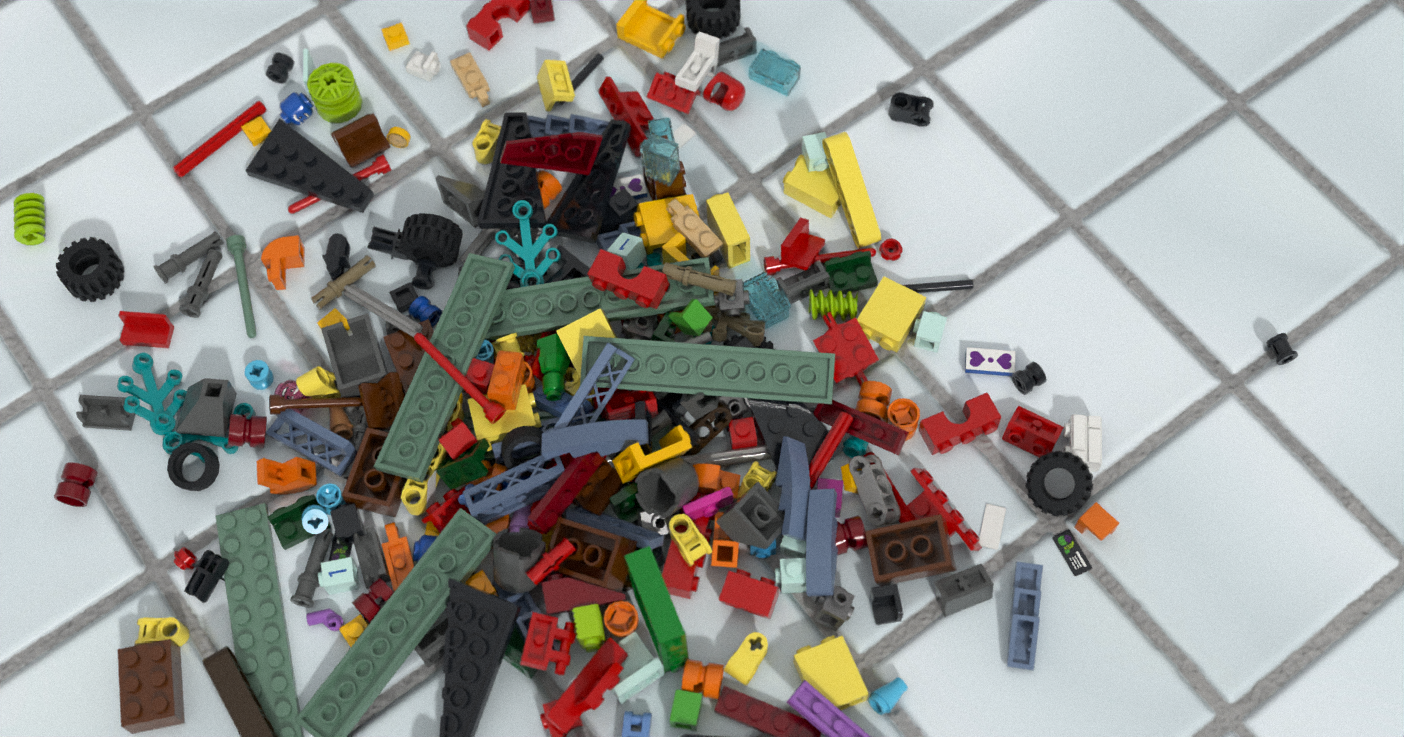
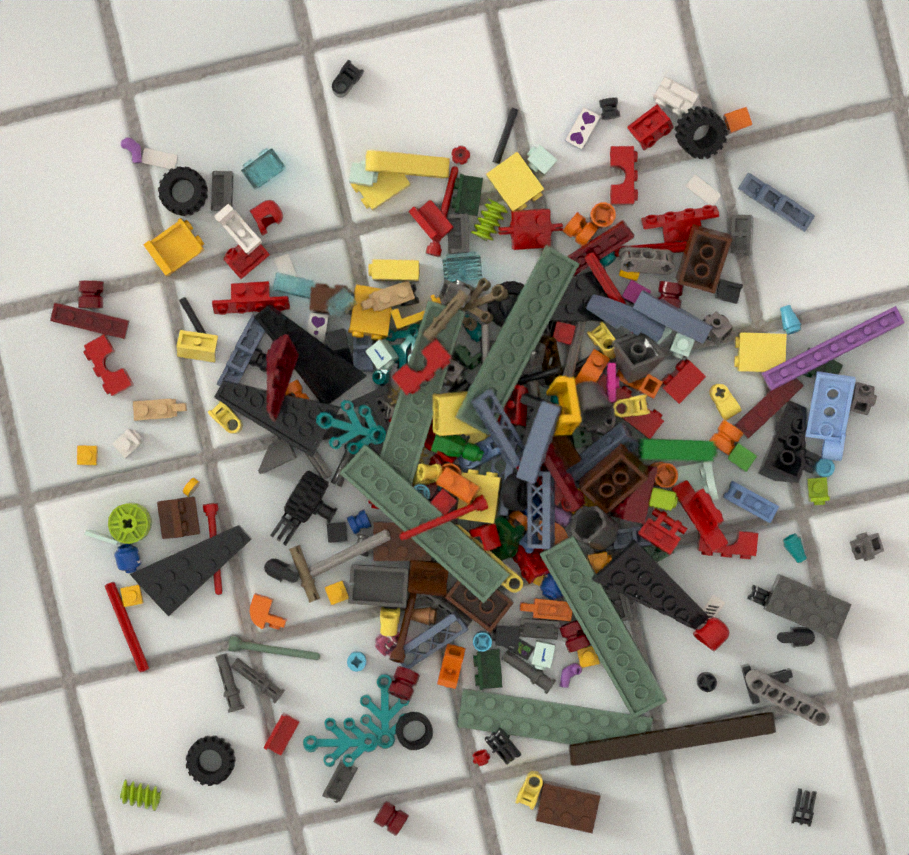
camera: 70 degrees left, 25 degrees up
(207, 408) = (373, 708): dark grey slope -> none
(280, 67) = (80, 558): black wheel -> none
(313, 514) = (493, 660): wheel -> none
(550, 561) = (611, 507): red pin -> none
(692, 319) = (470, 331): bright green panel -> none
(1072, 552) = (746, 145): black sticker -> none

